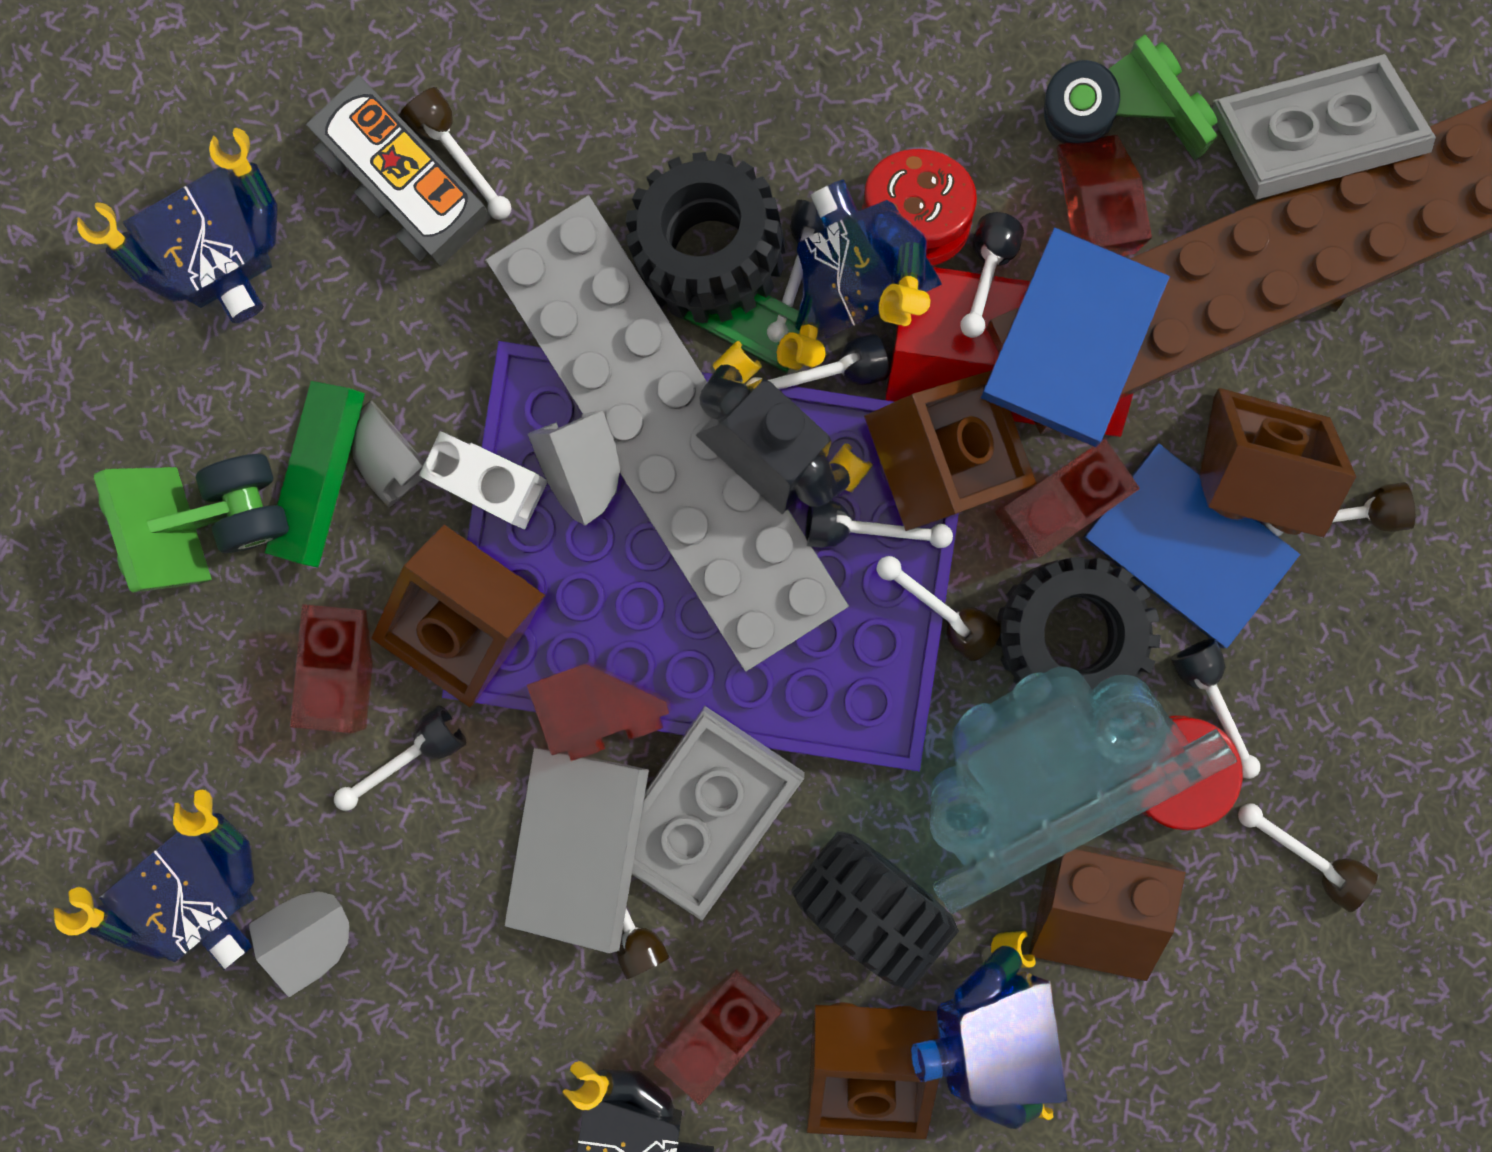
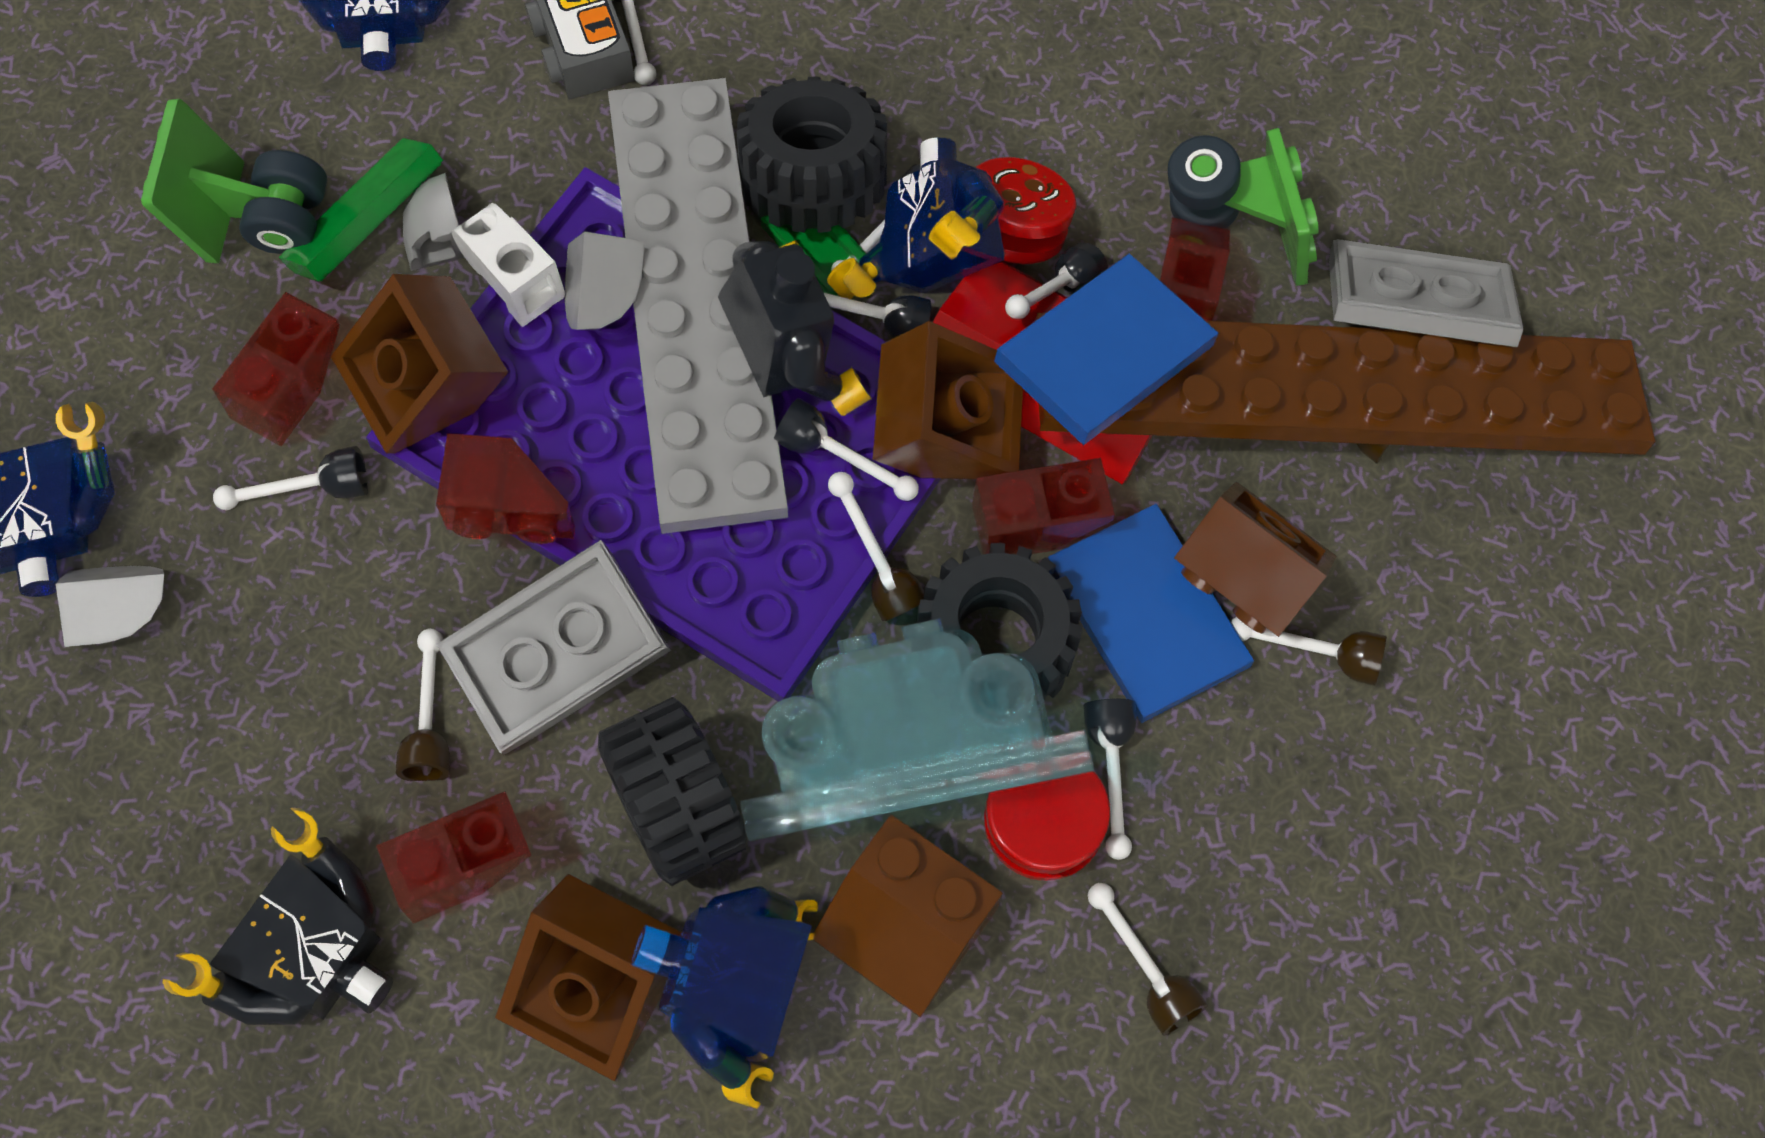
camera: 20 degrees right, 20 degrees down
(576, 849) = (414, 626): light grey tile -> none

